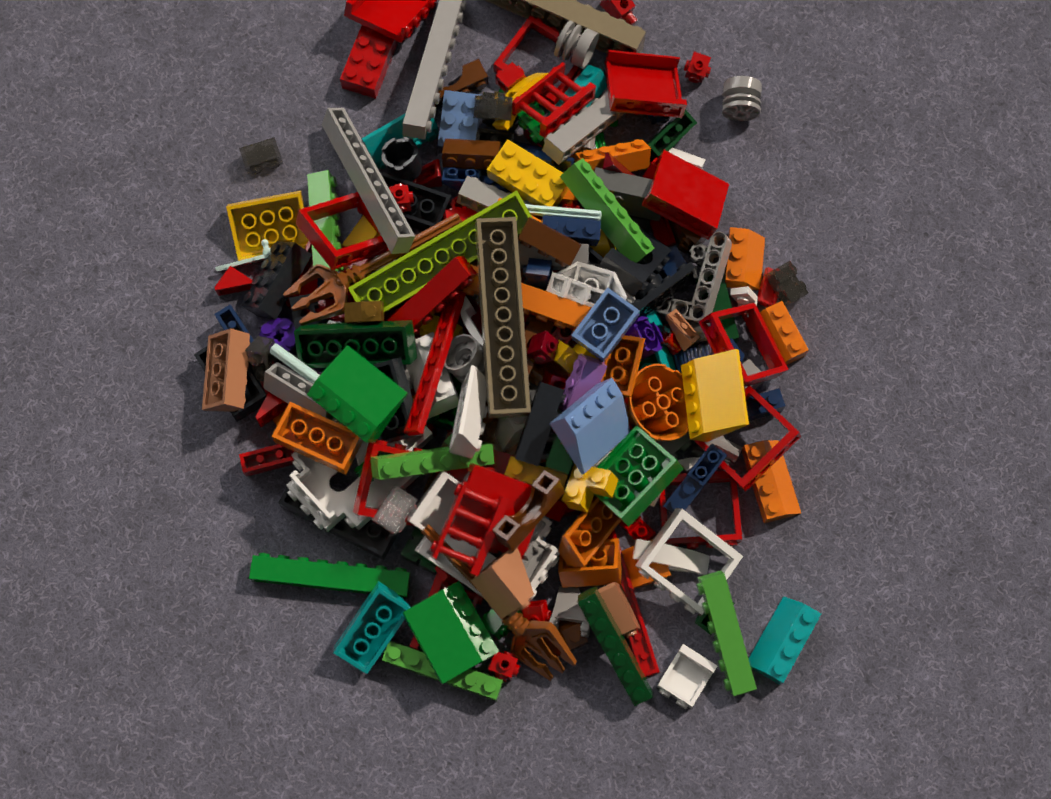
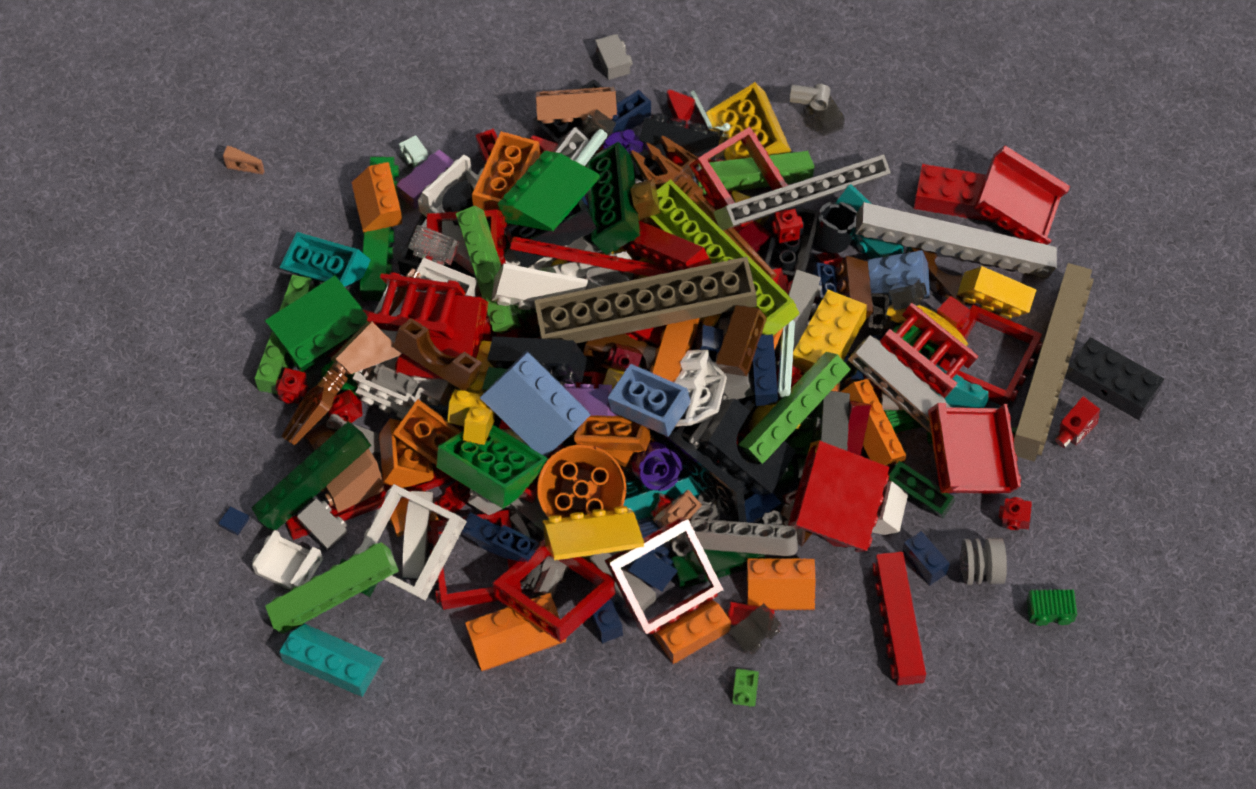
camera: 85 degrees right, 15 degrees down
(159, 337) = (613, 56): none -> light grey brick
(226, 712) = (242, 161): none -> nougat slope
(246, 536) = (413, 151): none -> light aqua brick
(250, 157) = (814, 96): none -> light grey piece
(278, 527) = (413, 185): none -> medium lavender brick
(306, 572) = (377, 198): none -> orange slope
(330, 488) = (458, 198): none -> black brick
(491, 40) = (996, 292): none -> yellow brick
(573, 43) = (1007, 372): light grey wheel -> none
(636, 726) = (234, 521): none -> dark blue tile
(655, 642) = (322, 524): none -> light grey brick
(731, 143) = (925, 558): none -> dark blue brick
(744, 296) = (730, 587): white bracket -> none
(780, 58) = (1051, 606): none -> green brick
(782, 172) = (900, 619): none -> red brick
(833, 299) = (745, 687): none -> bright green bracket

